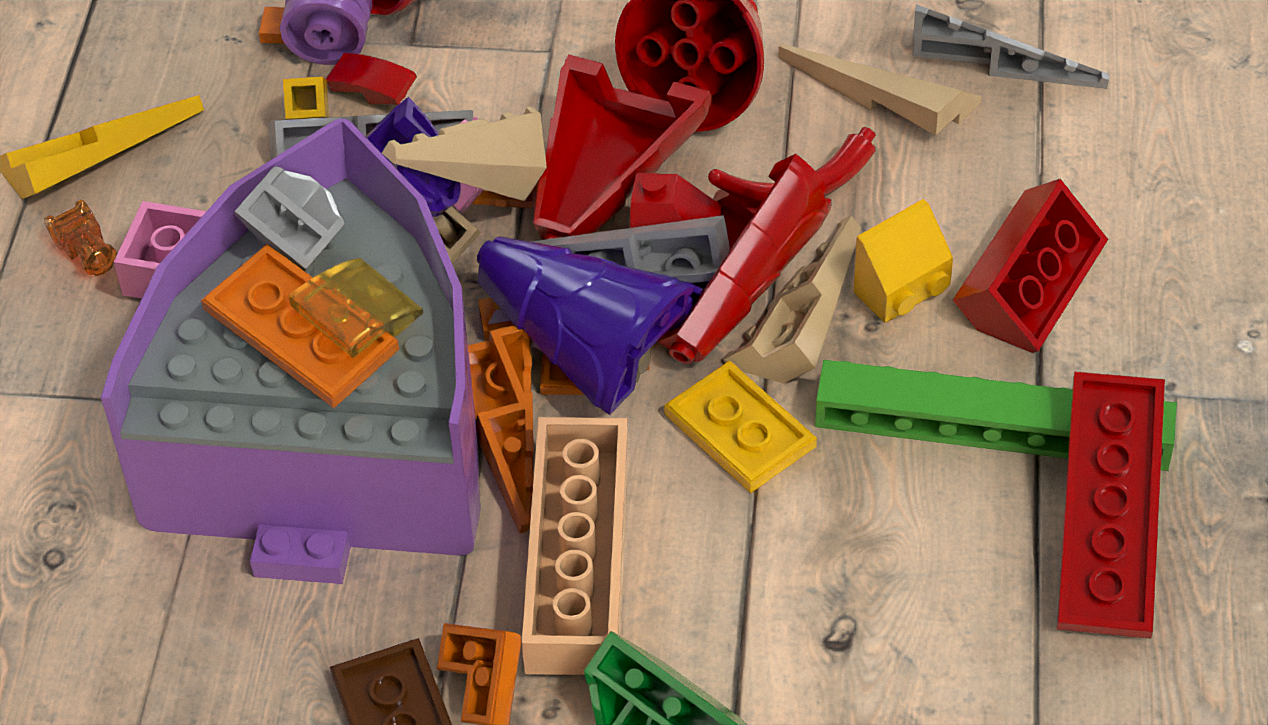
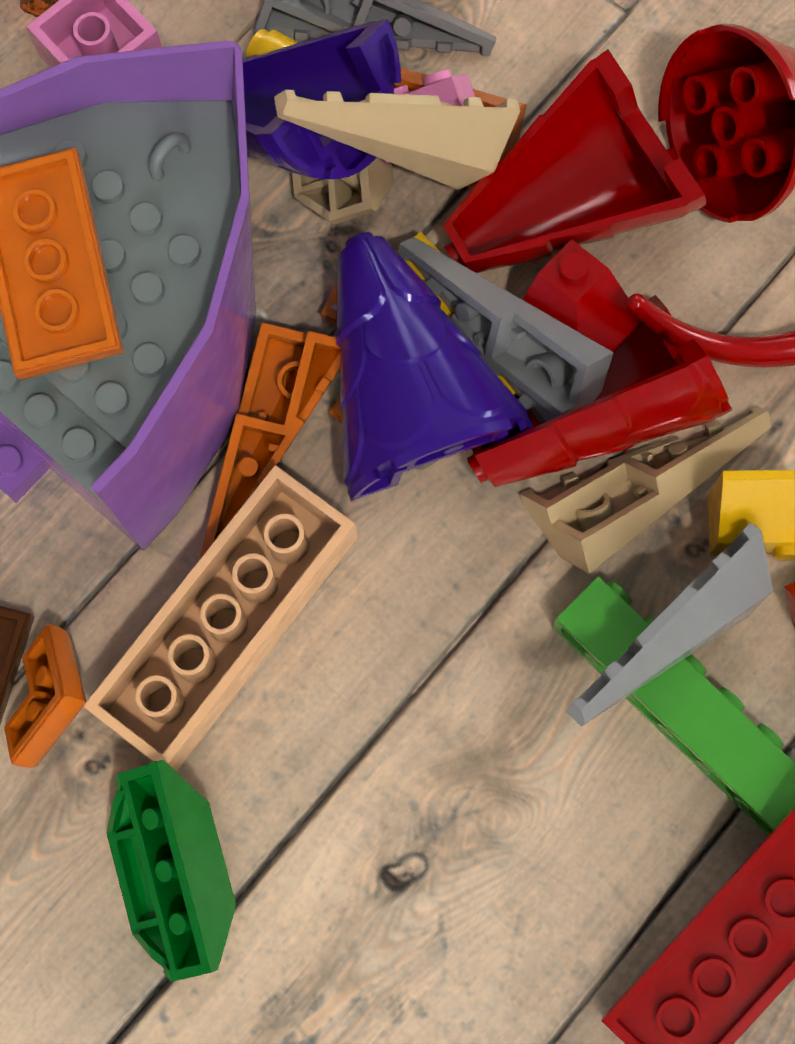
camera: 40 degrees right, 25 degrees up
(291, 215) = (117, 130): light grey slope -> none
(354, 305) = (107, 278): clear yellow slope -> none
(740, 426) = (480, 581): yellow tile -> none
(912, 337) = (703, 611): none -> light grey wedge

